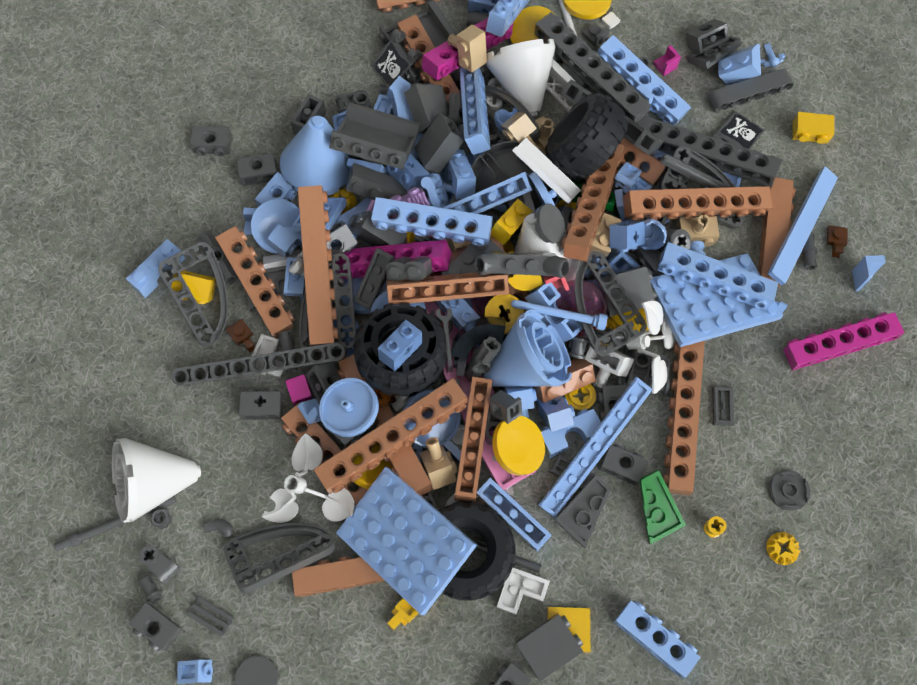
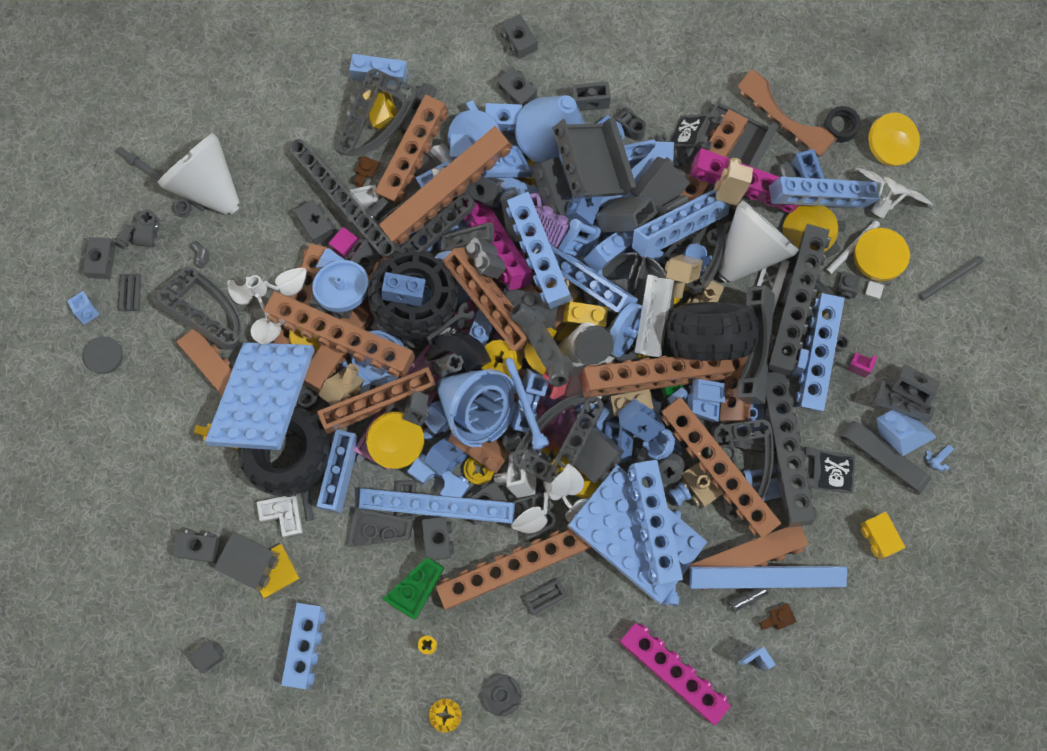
camera: 60 degrees right, 5 degrees up
(691, 172) = (748, 448): dark grey axle -> none

